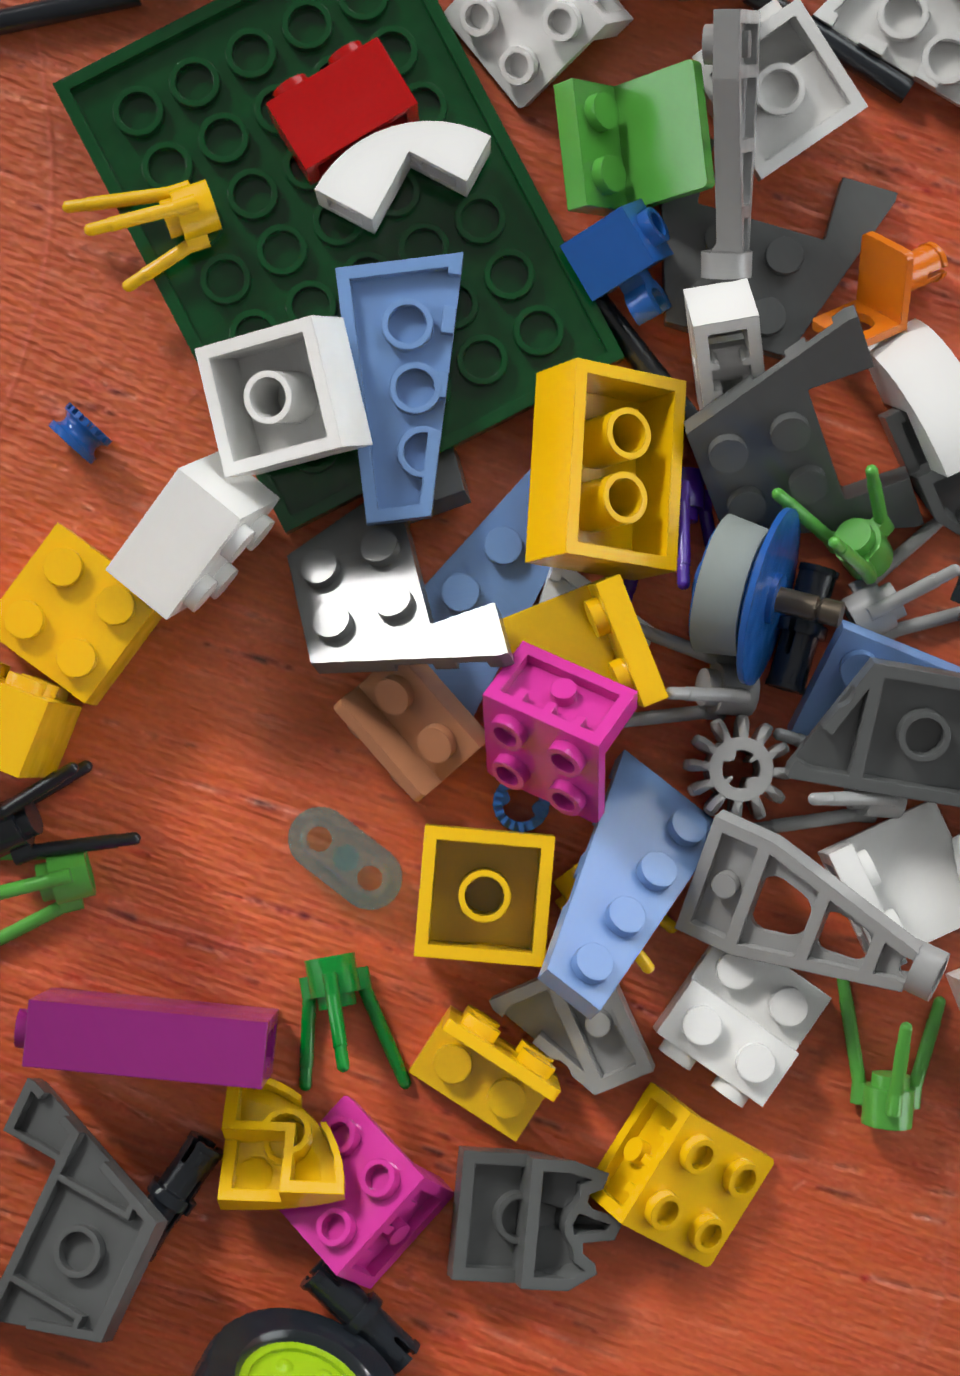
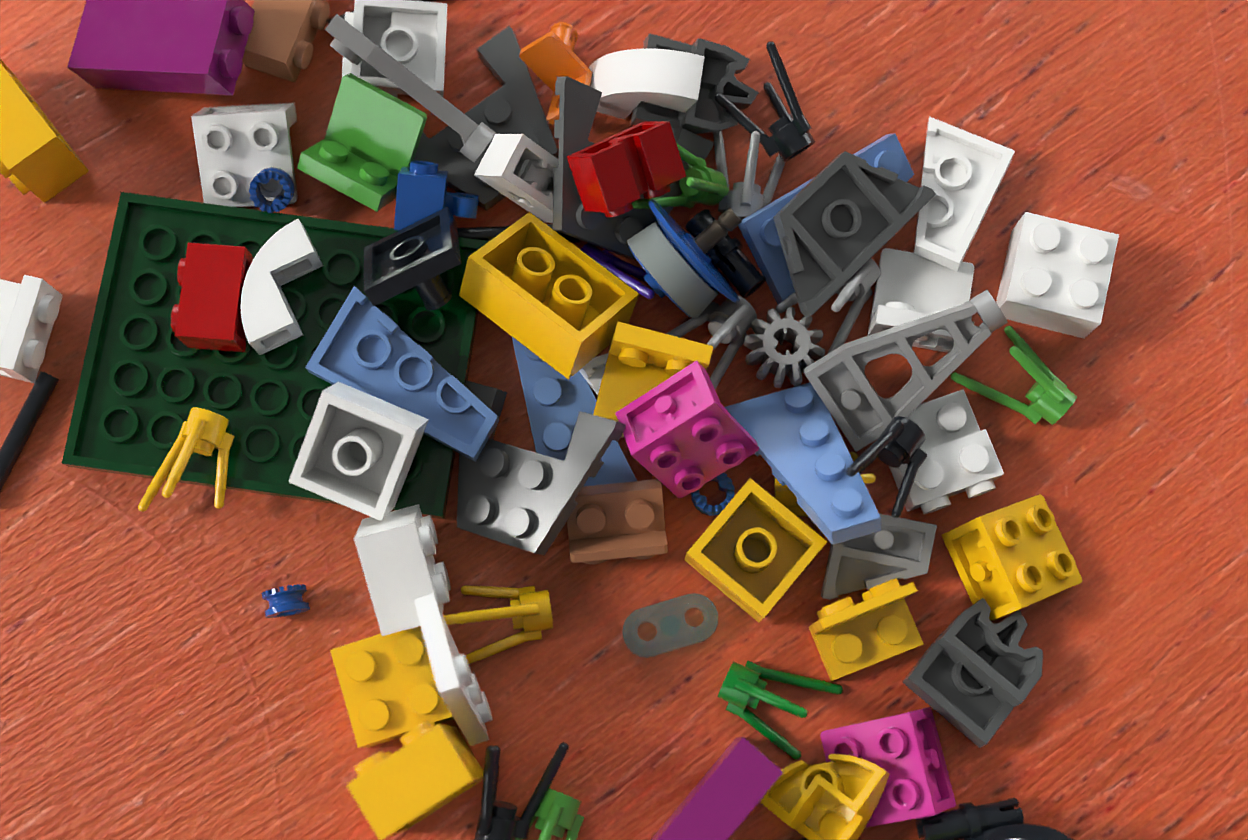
camera: 50 degrees left, 10 degrees down
(113, 678) = (452, 673): none -> white wing
(250, 698) = (528, 611): none -> yellow plant
(505, 94) = (279, 202): none -> blue bush
(535, 296) = (414, 259): none -> black tile
(704, 968) = (896, 446): none -> black plant
(807, 454) = (625, 166): none -> red brick

